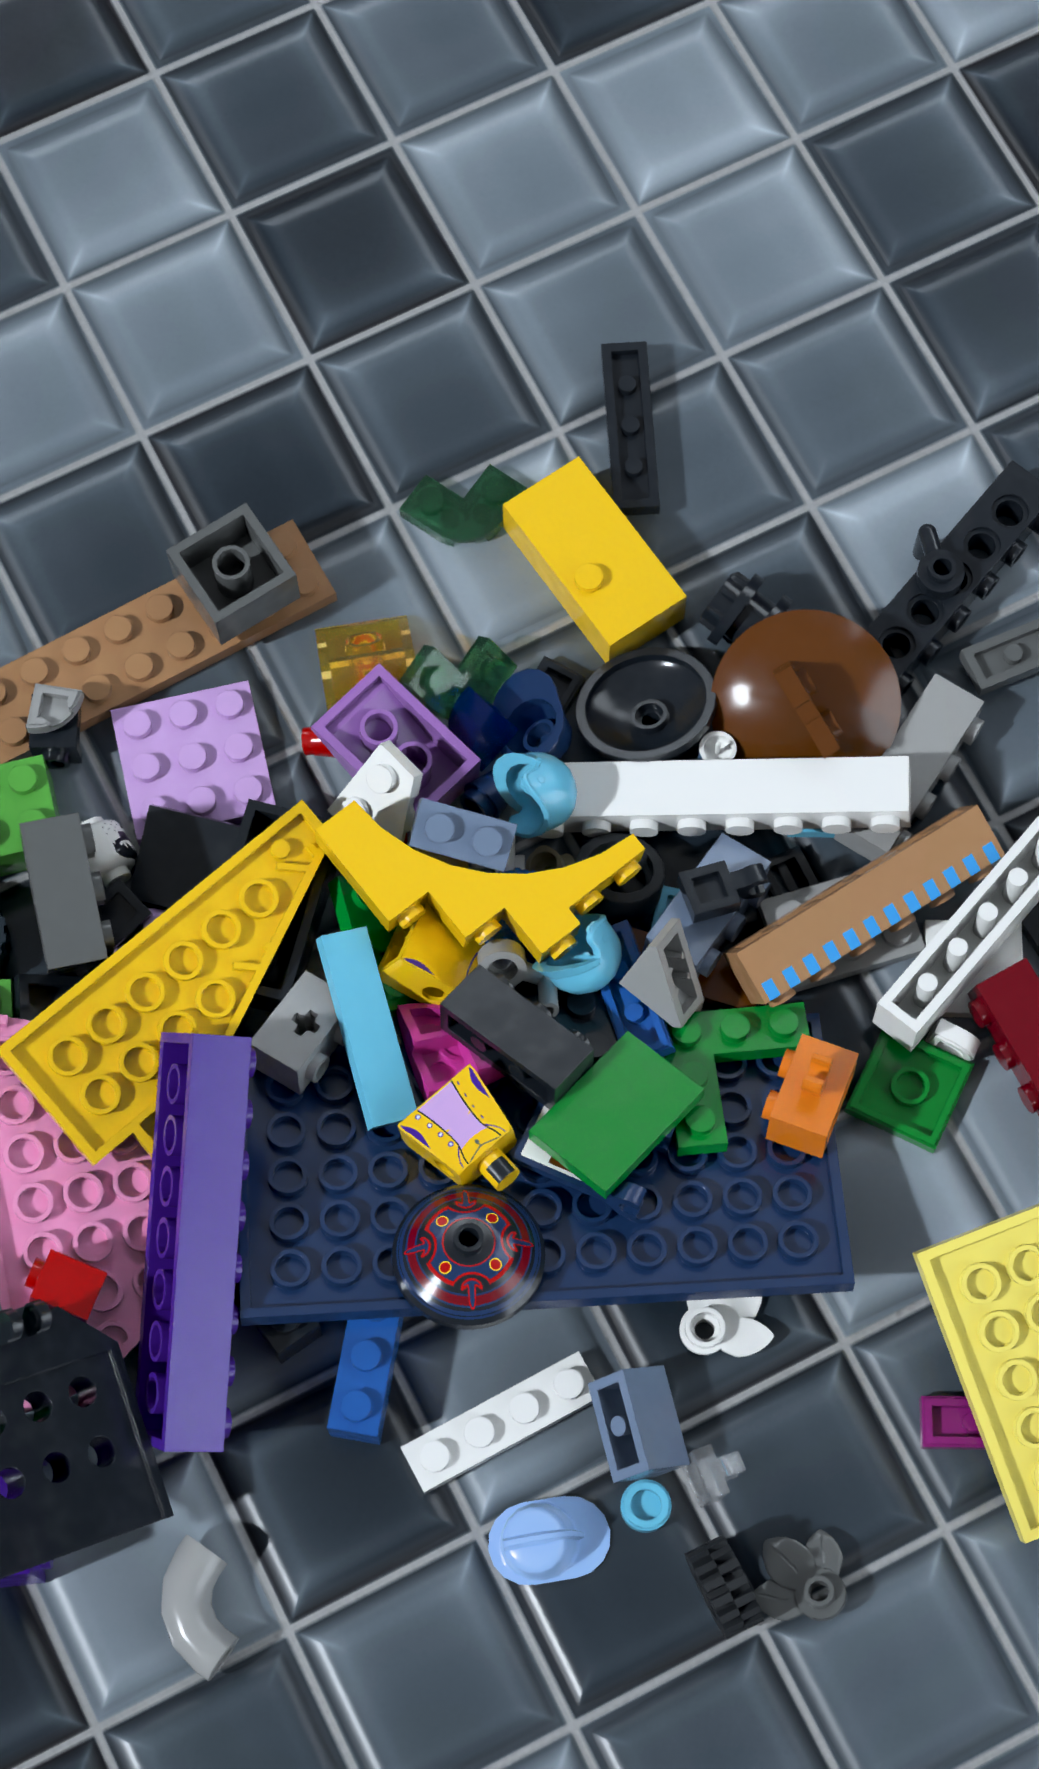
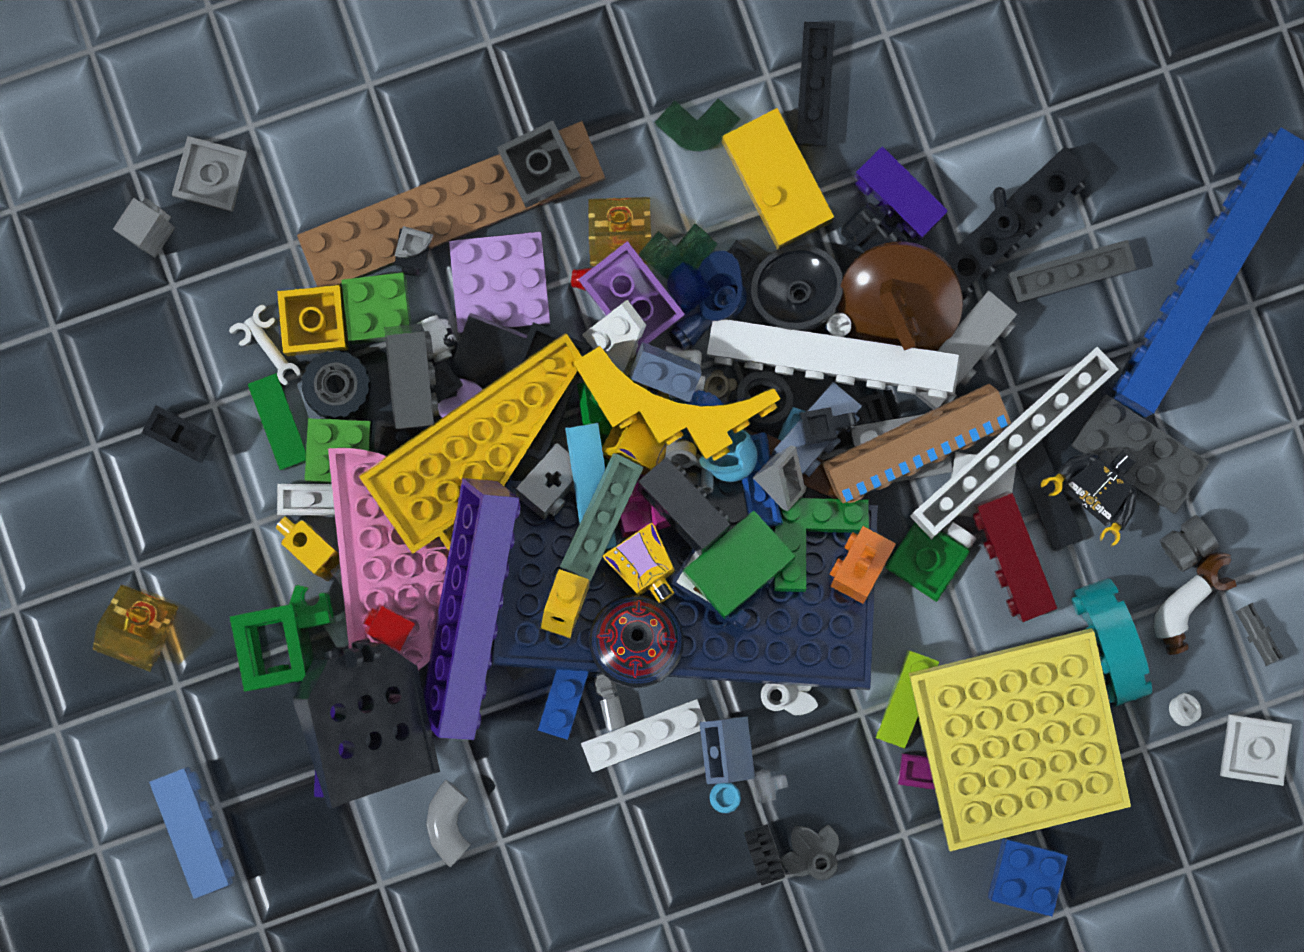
camera: 10 degrees right, 15 degrees up
(350, 1196) = (565, 603): none -> yellow torso
(388, 1067) = (601, 516): none -> sand green plate
(440, 1375) = (610, 703): none -> light grey bar
(536, 788) = (720, 342): medium azure helmet -> none
(549, 1540) = (664, 809): light blue piece -> none
(791, 563) = (900, 194): none -> dark purple brick
(909, 1316) = (901, 708): none -> lime slope

